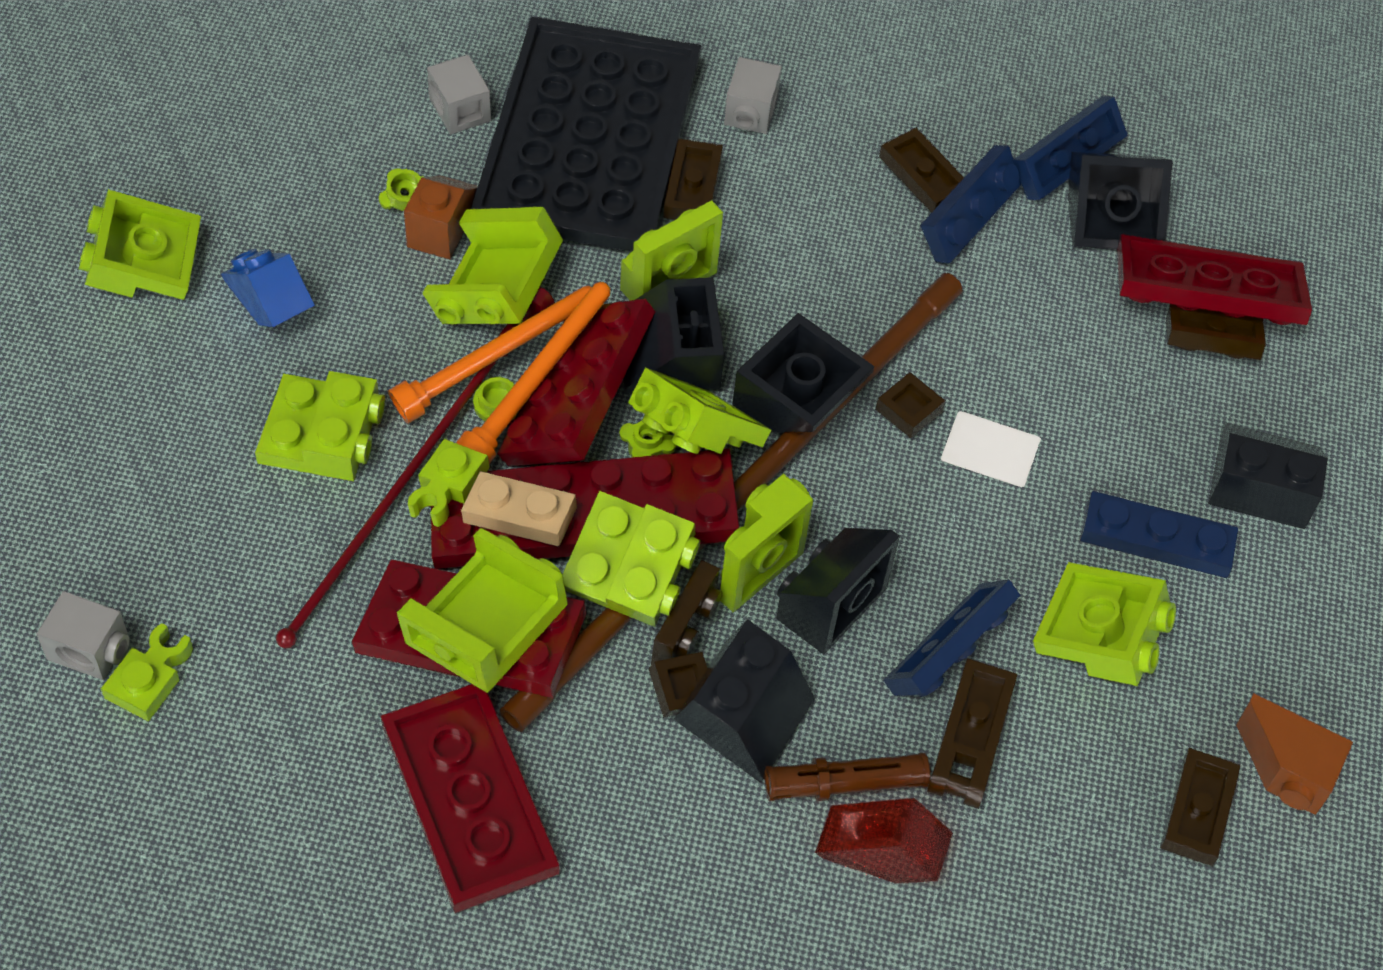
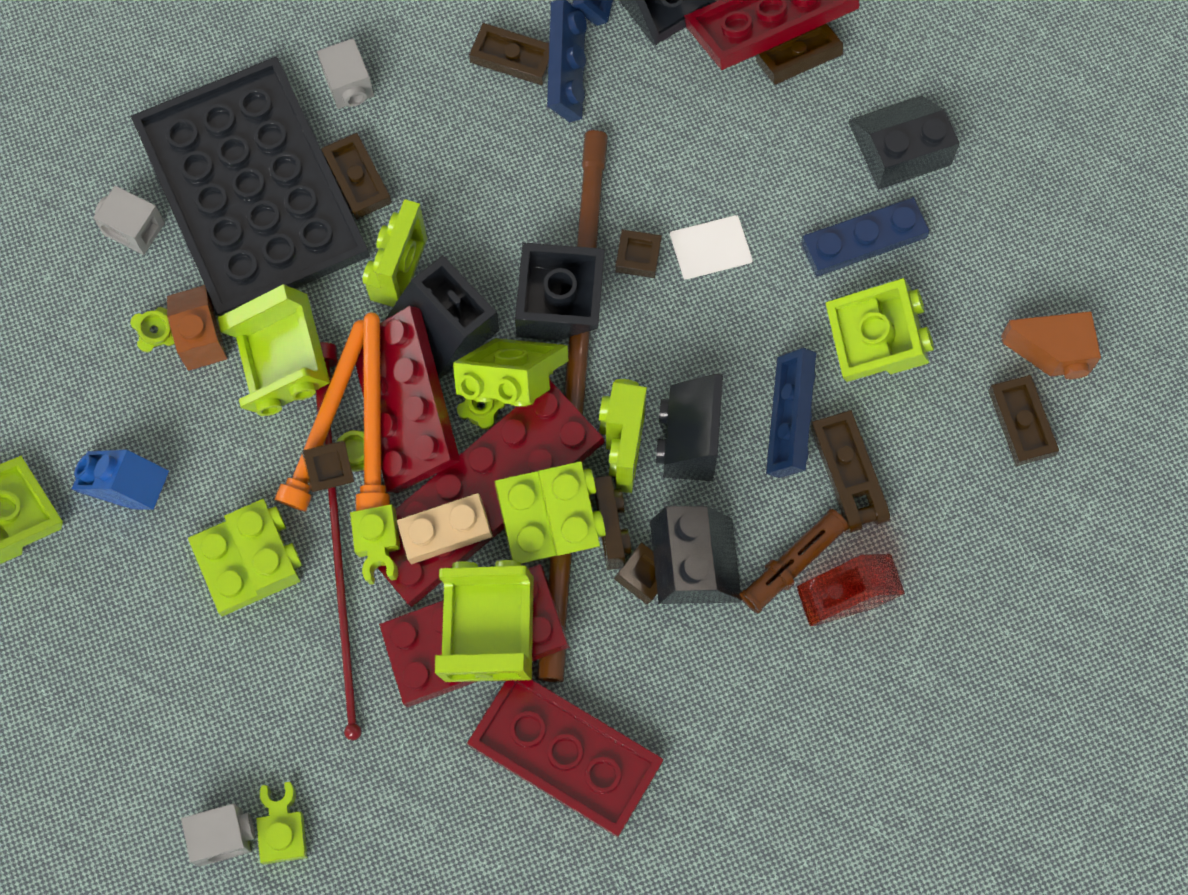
camera: 30 degrees left, 15 degrees up
(458, 389) = (327, 466): none -> dark brown plate

